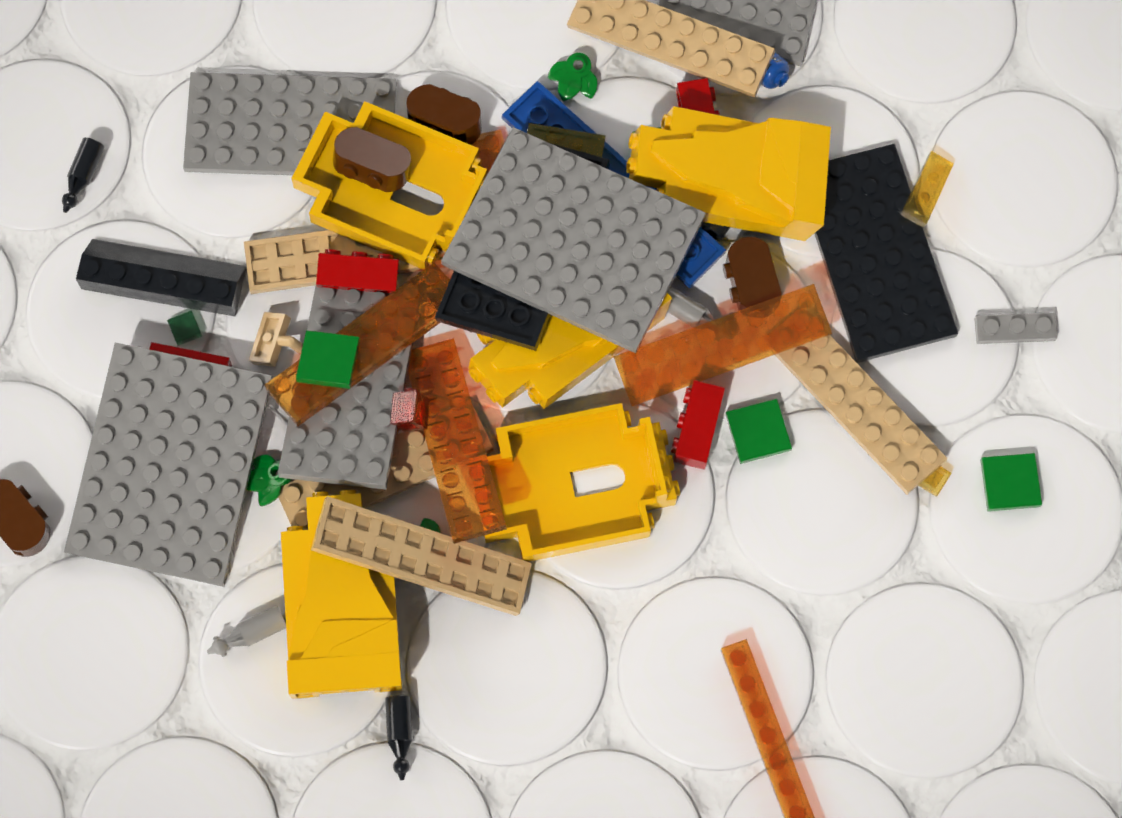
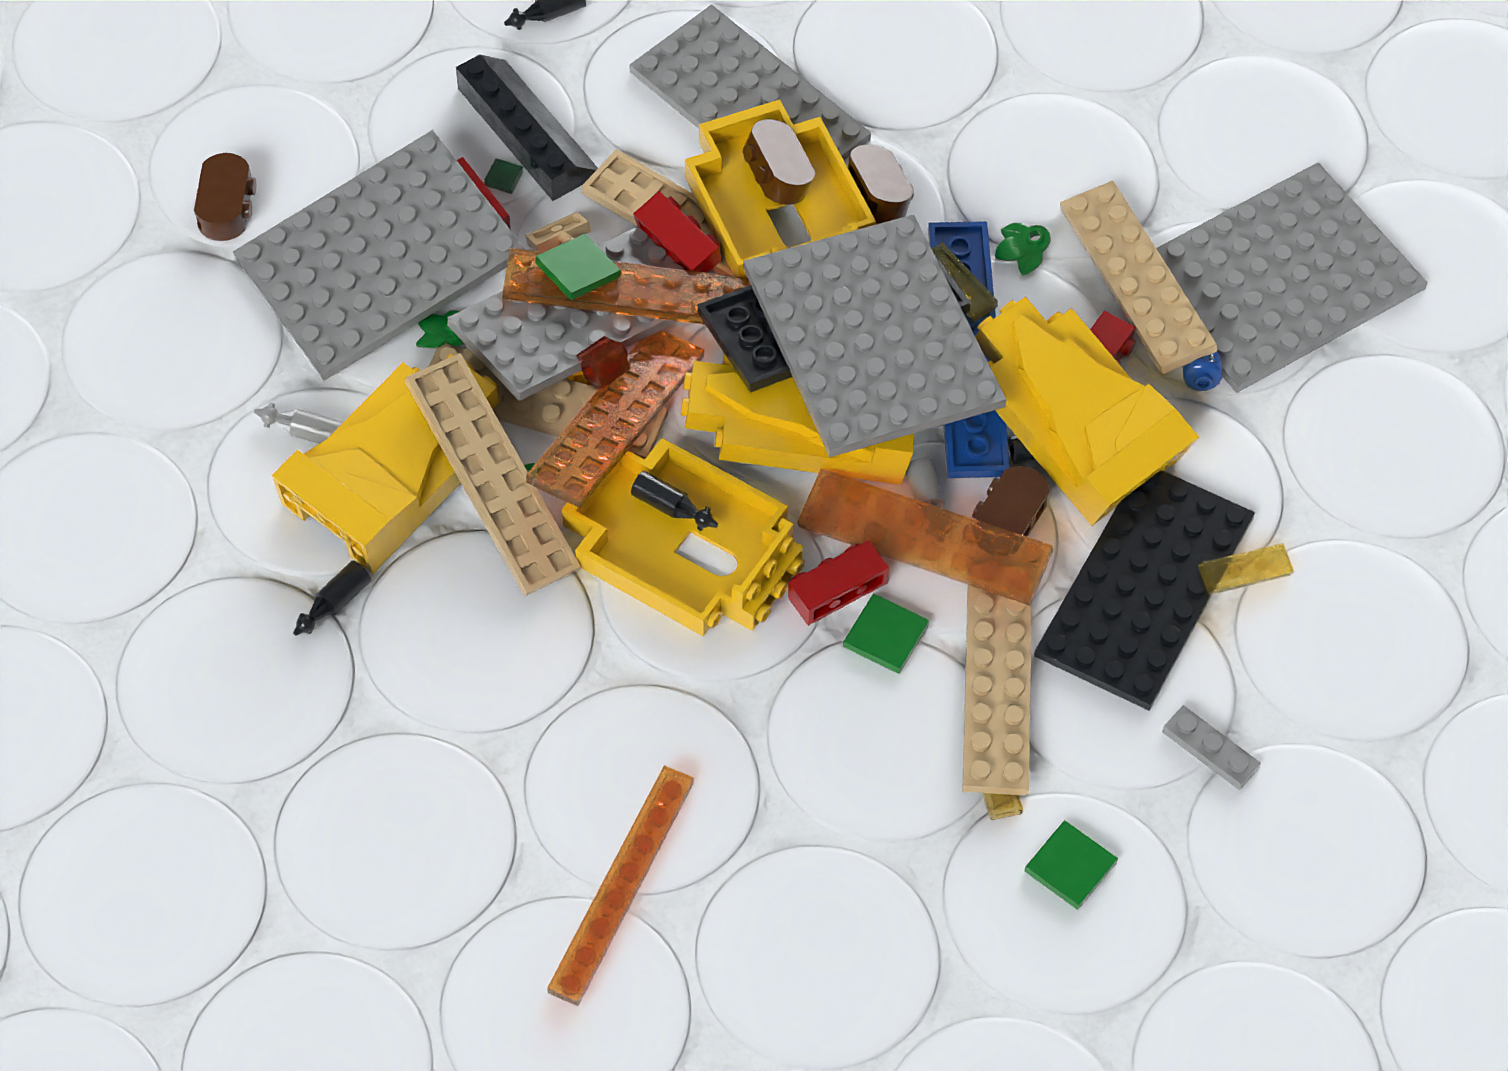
camera: 45 degrees right, 15 degrees down
(544, 466) = (670, 500): none -> black wheel

